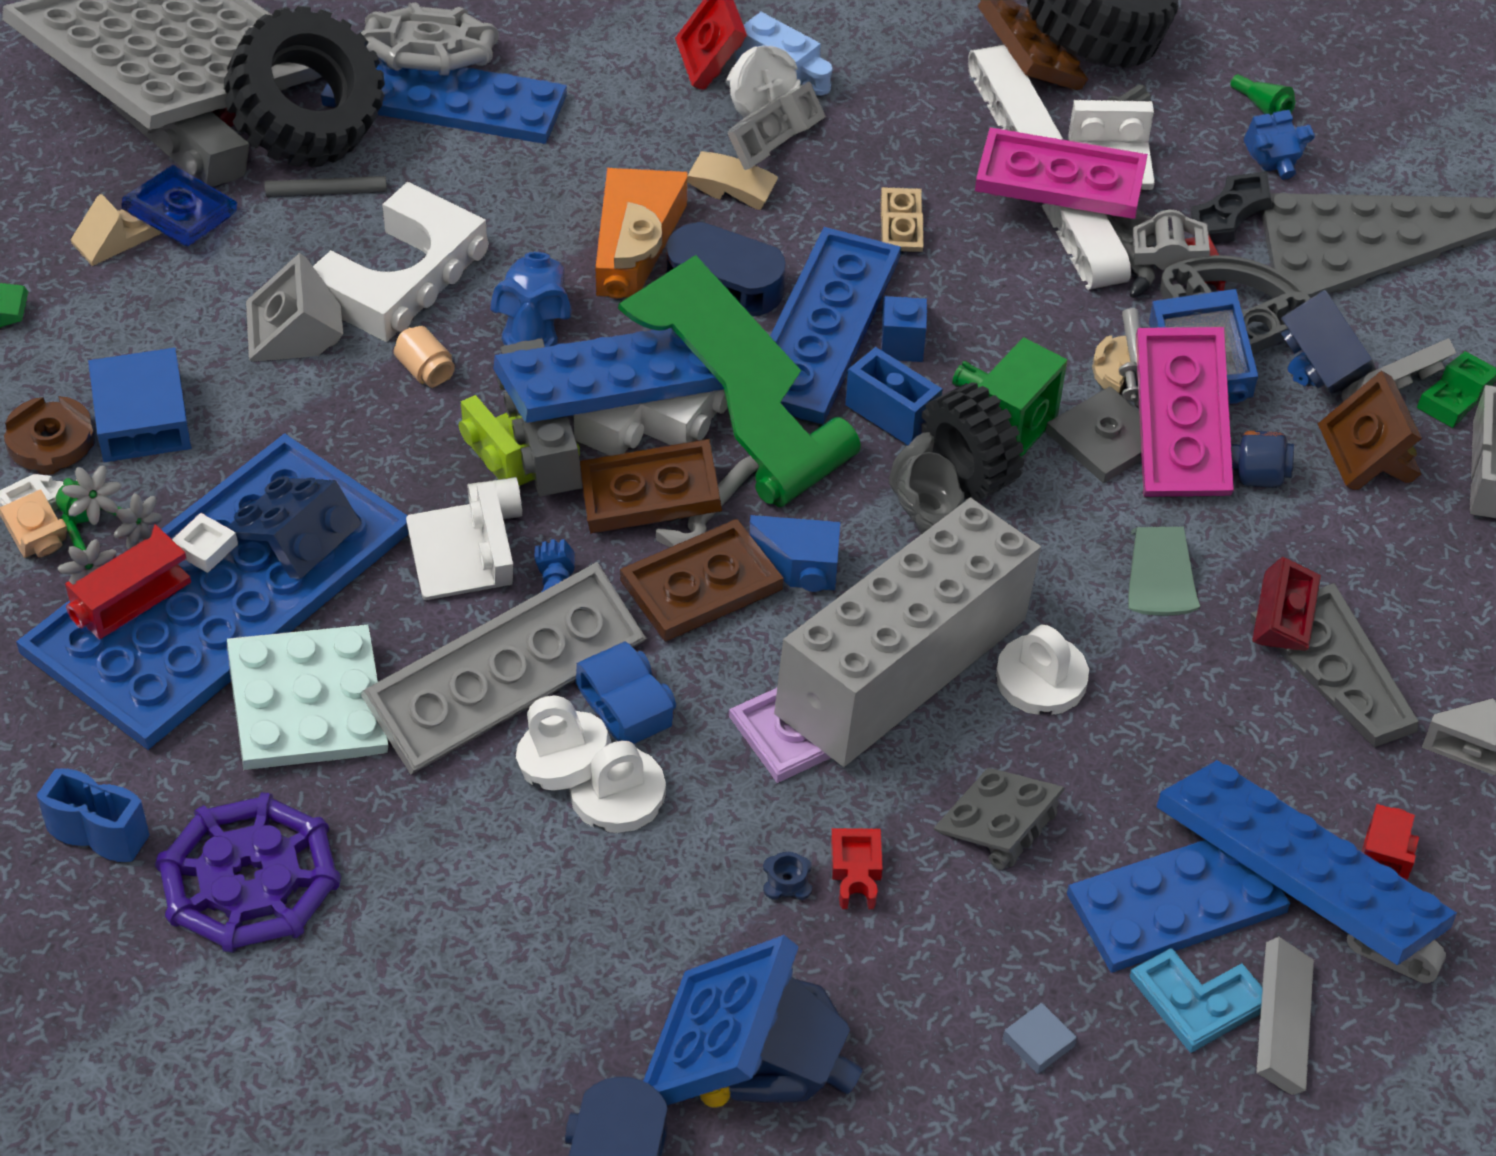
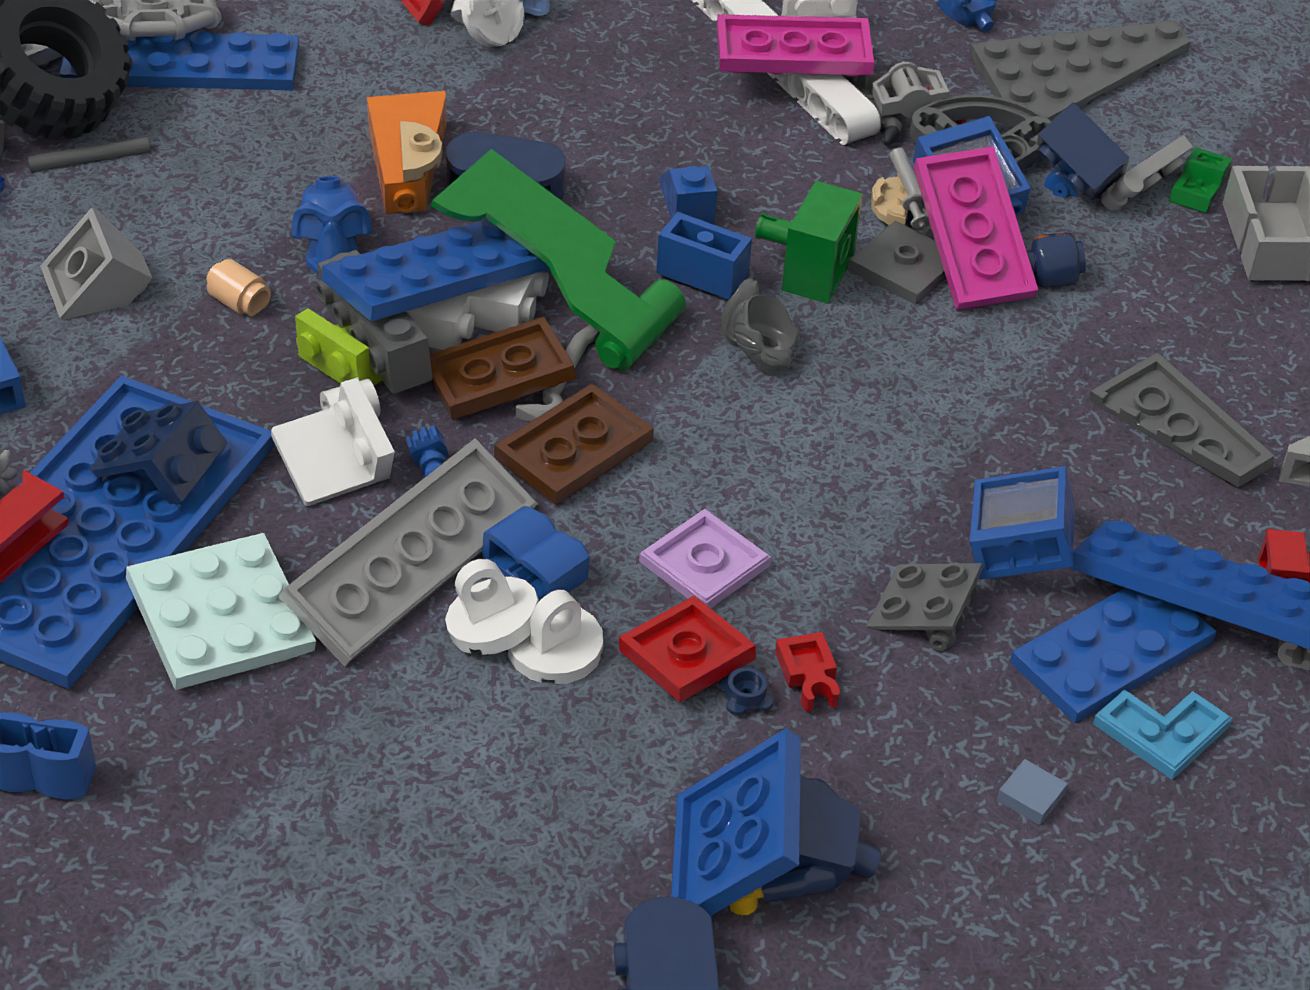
camera: 15 degrees left, 5 degrees down
(205, 542) = (78, 481): white plate -> none
(249, 899) = (215, 758): dark purple plate -> none
(389, 300) = (188, 242): white arch -> none
(721, 173) = (473, 91): tan slope -> none
(741, 820) = (687, 648): none -> red plate
(774, 124) = (513, 40): light grey slope -> none
(799, 549) = (662, 399): blue slope -> none
(831, 316) = (618, 193): blue plate -> none
(902, 218) = (654, 109): tan slope -> none
(905, 631) = (791, 451): light grey brick -> none
(975, 438) = (798, 274): black tyre -> none
(1042, 672) = (920, 470): white tile -> none
(1119, 751) = (1023, 523): none -> blue window
(1161, 573) = (997, 369): sand green piece -> none
(1236, 202) = (953, 52): black tile -> none
(1285, 1016) = (1249, 729): light grey tile -> none
(1286, 606) = (1122, 378): dark red slope -> none
(1372, 434) = (1145, 223): reddish brown bracket -> none

